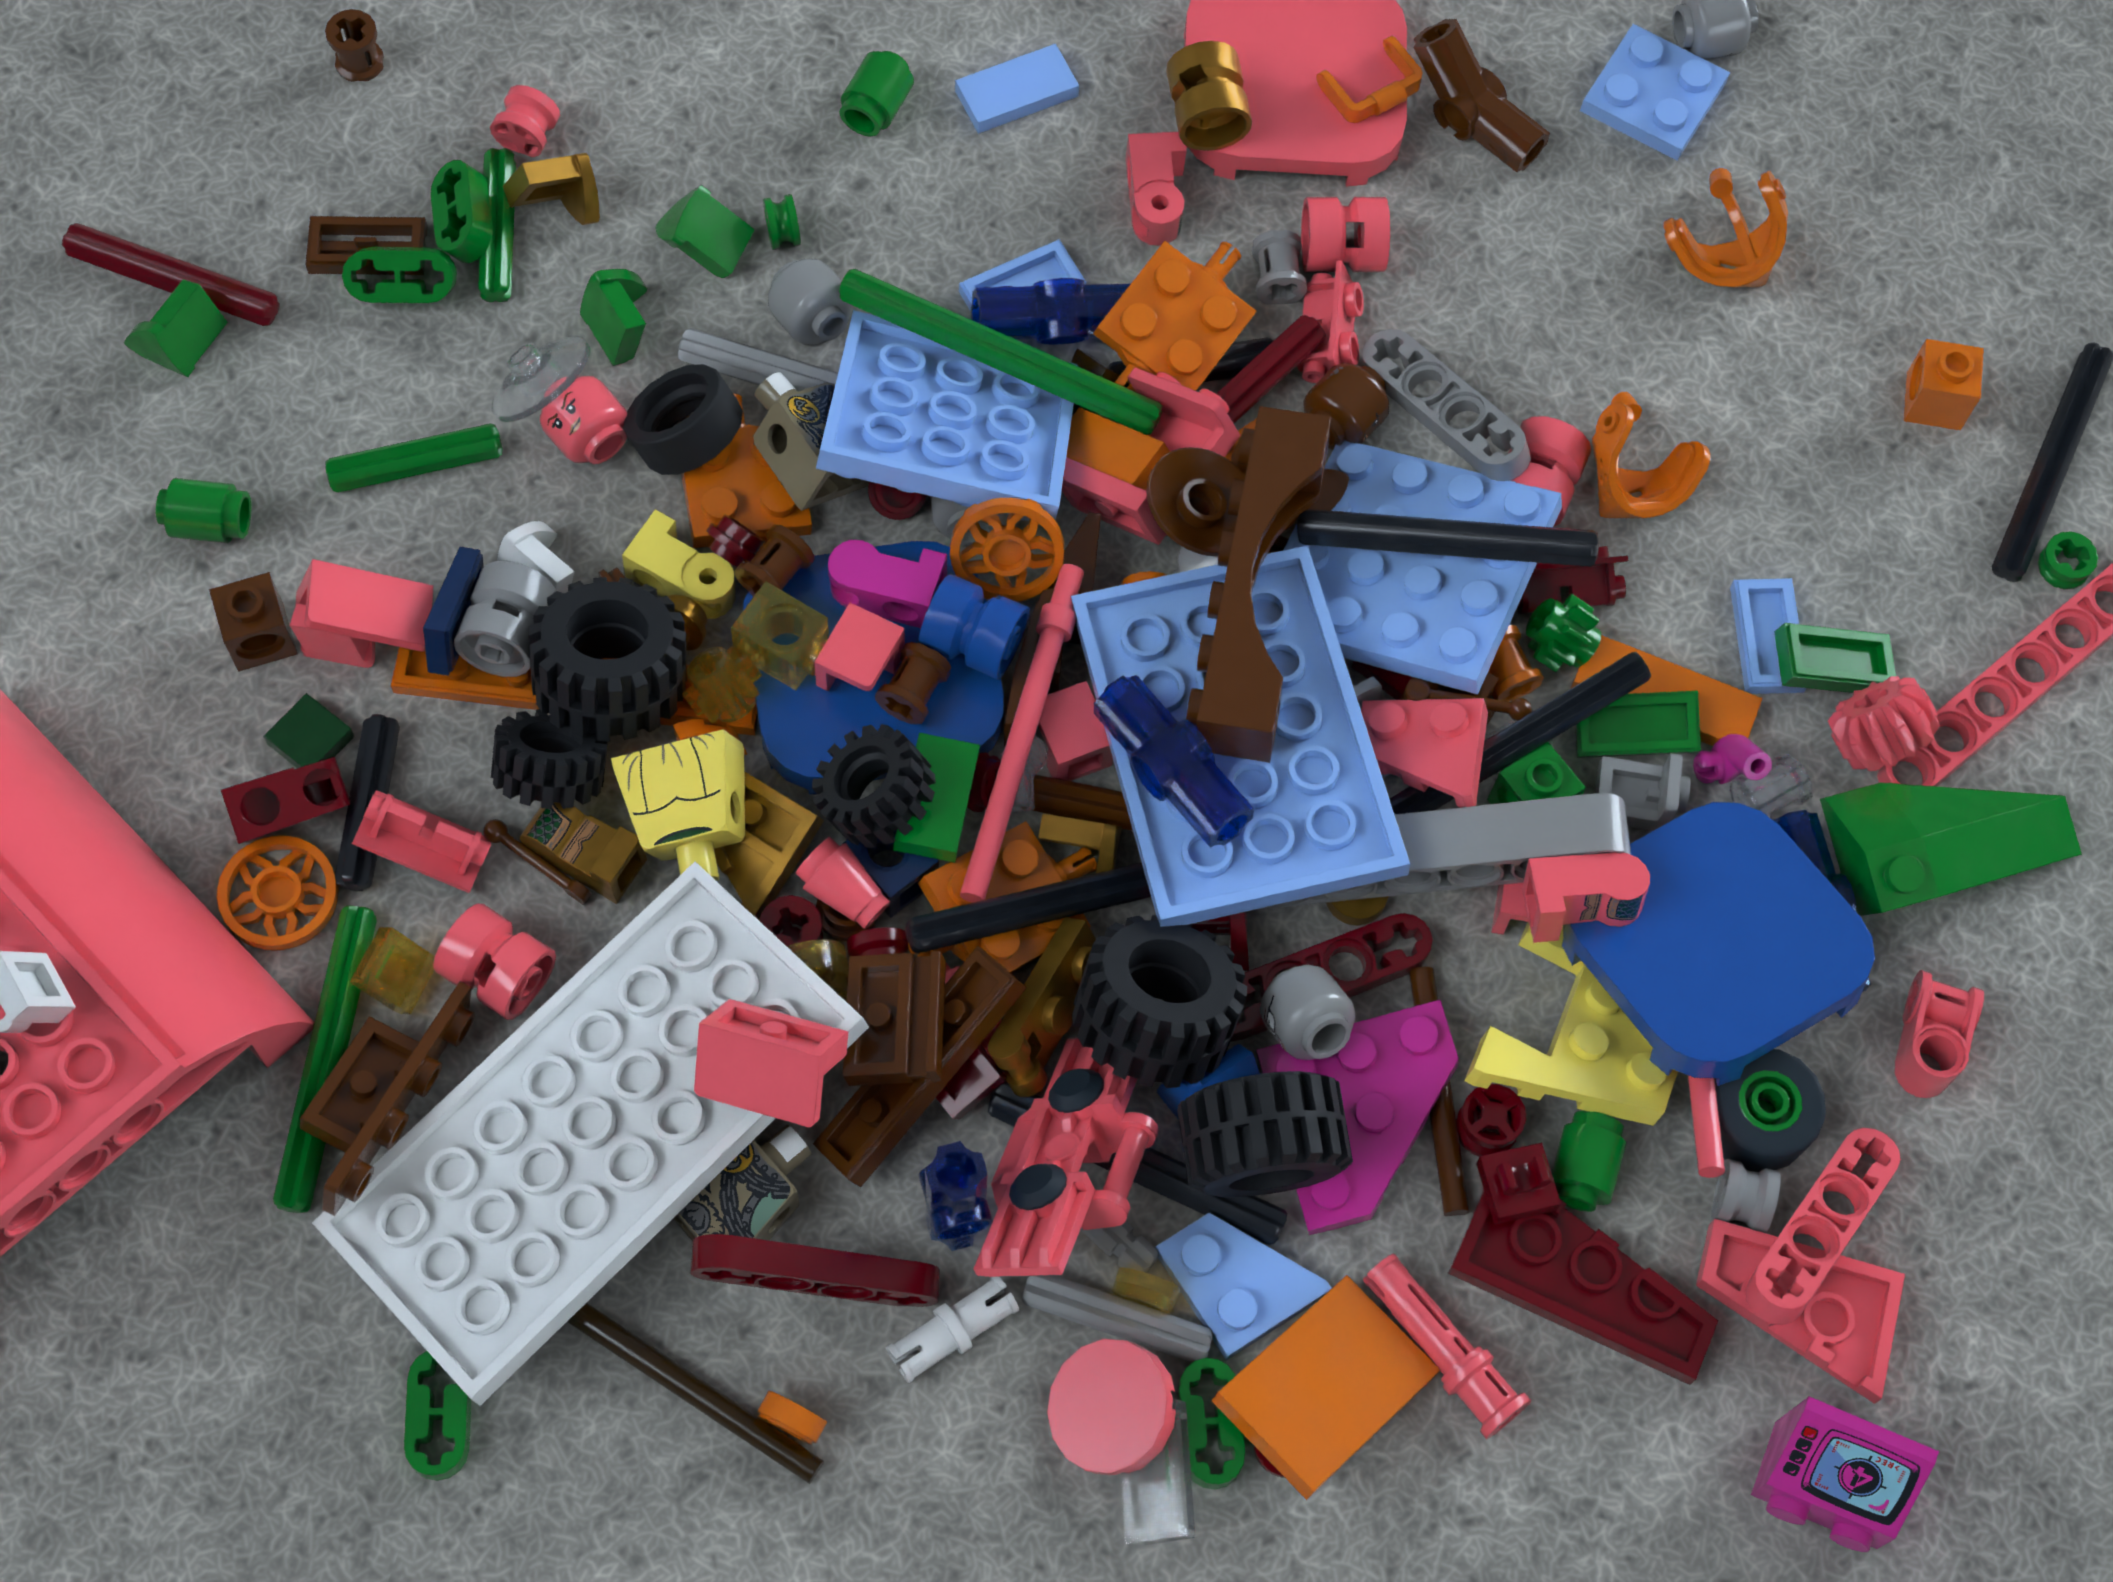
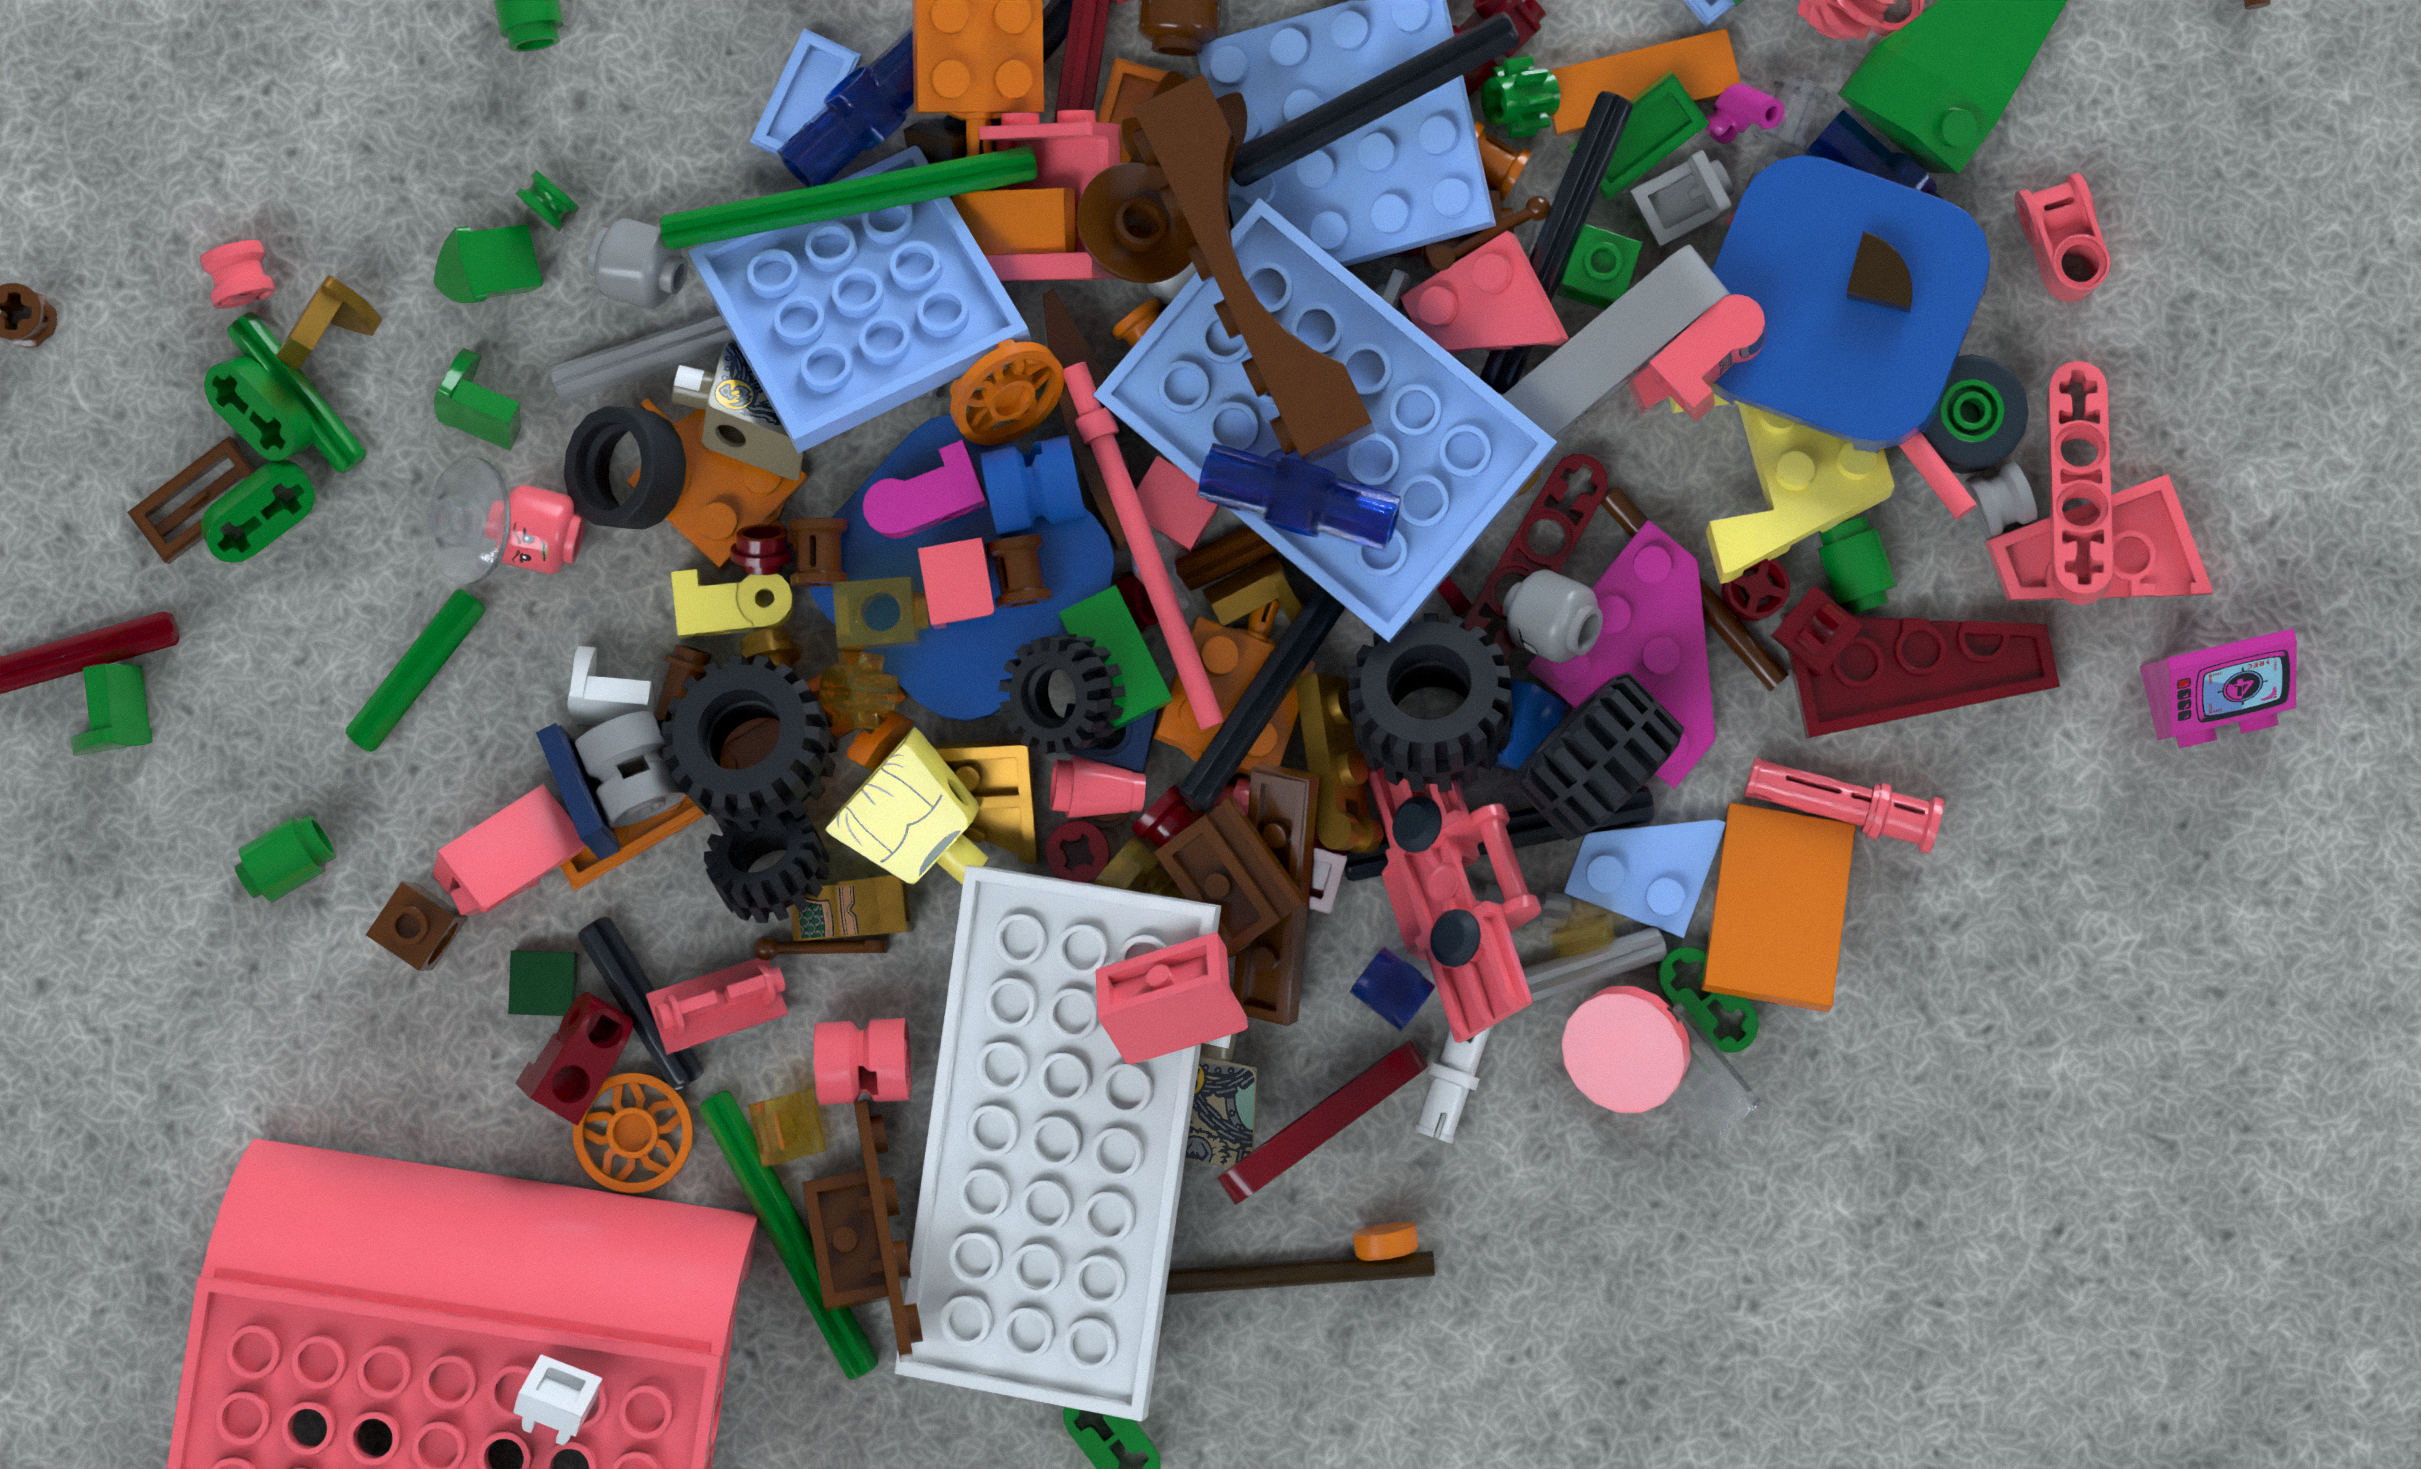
camera: 25 degrees left, 20 degrees up
(1764, 929) = (1880, 275): none -> dark brown tile

